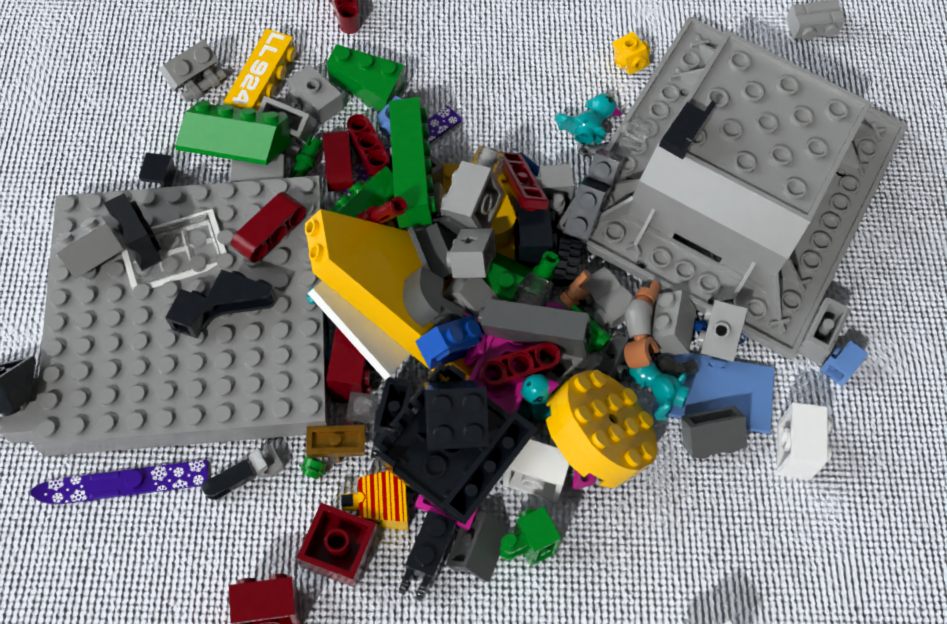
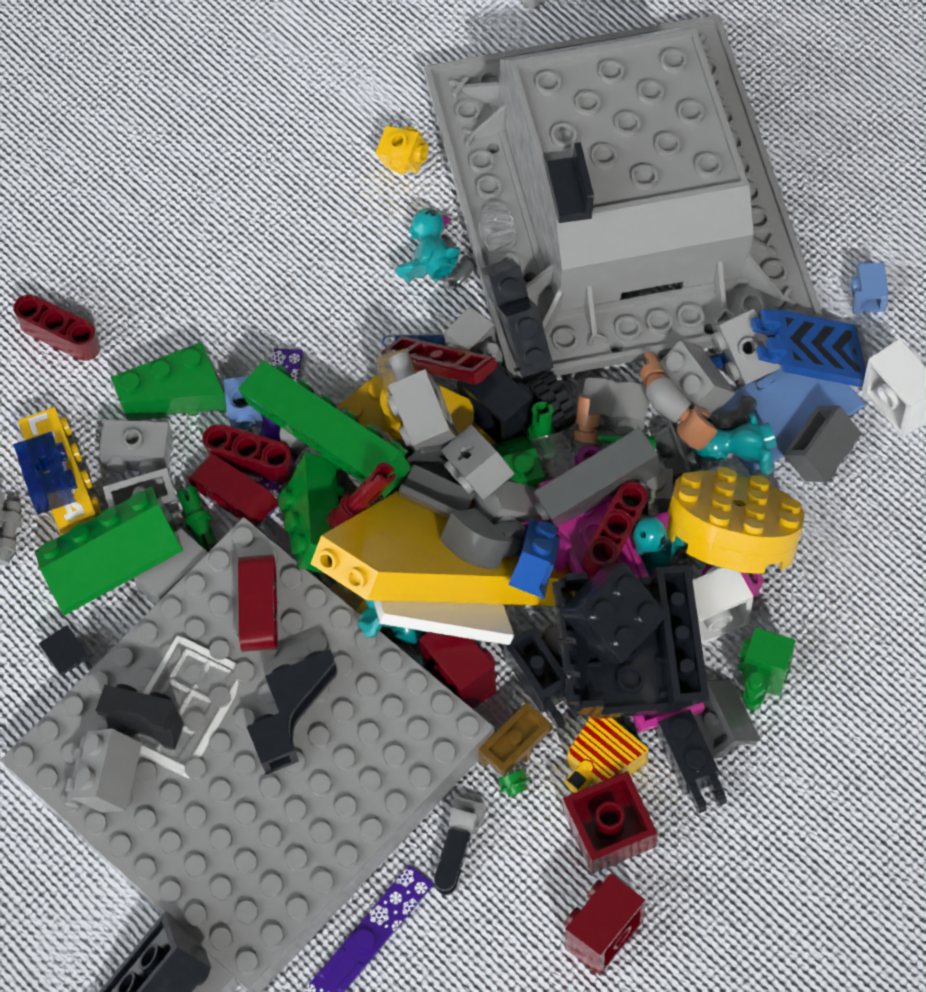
camera: 35 degrees left, 0 degrees up
(244, 64) = (51, 488): none -> clear blue brick
(362, 410) = (507, 694): clear brick -> none
(765, 364) = (811, 346): none -> blue tile
(824, 330) = (828, 273): light grey brick -> none

